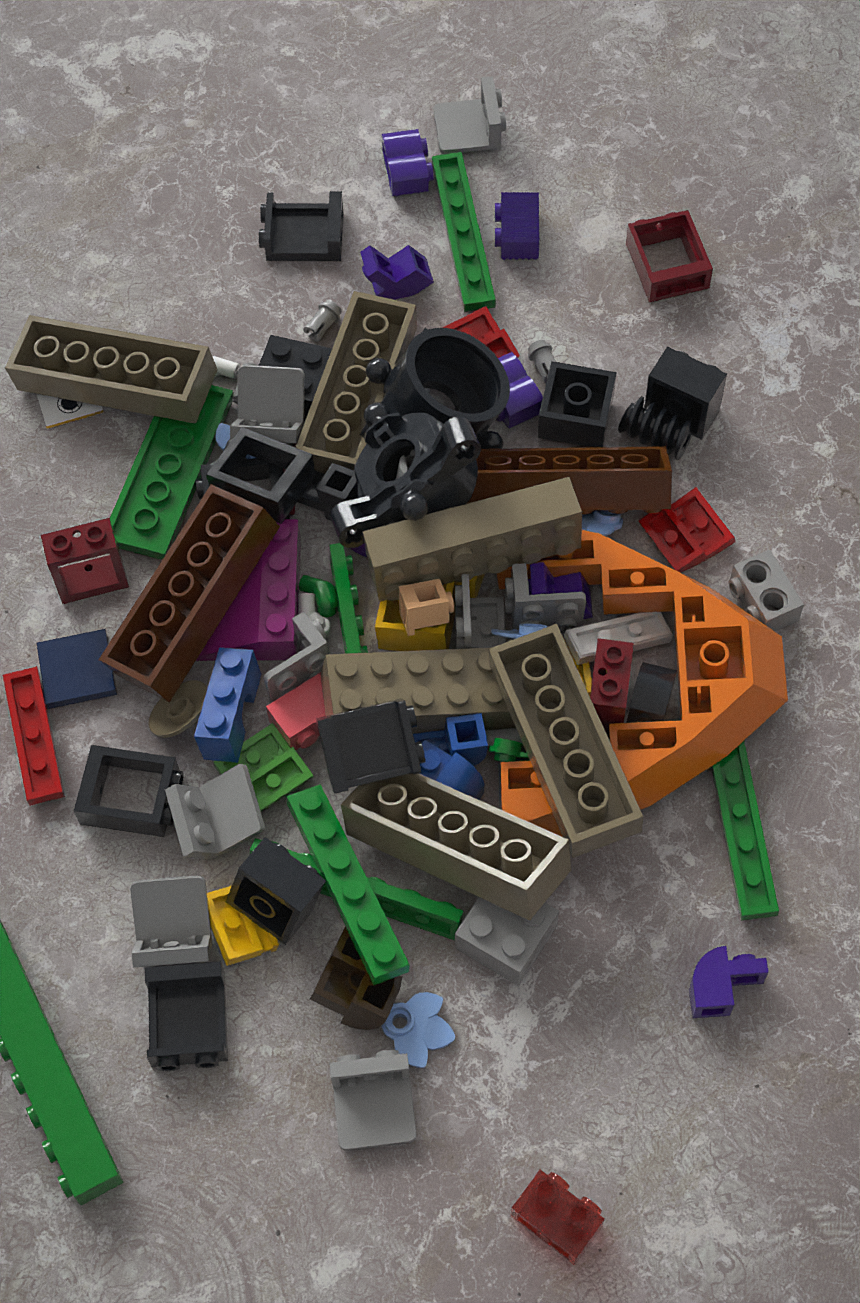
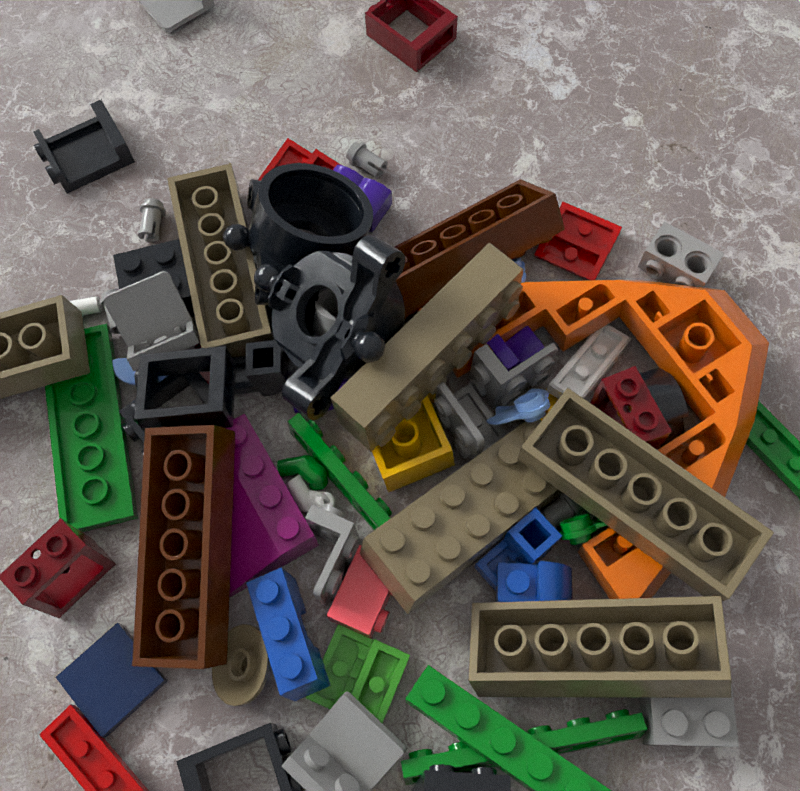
camera: 30 degrees left, 5 degrees up
(370, 744) = (463, 605): black panel -> none
(398, 275) = (194, 148): dark purple brick -> none
(406, 163) = (142, 51): dark purple brick -> none
(424, 605) = (421, 434): light nougat brick -> none
(463, 232) = (228, 87): green plate -> none
(519, 225) = (272, 58): dark purple brick -> none
(576, 404) = (422, 181): black brick -> none
(656, 427) = (498, 166): black piece -> none
(686, 389) = (505, 126): black brick -> none

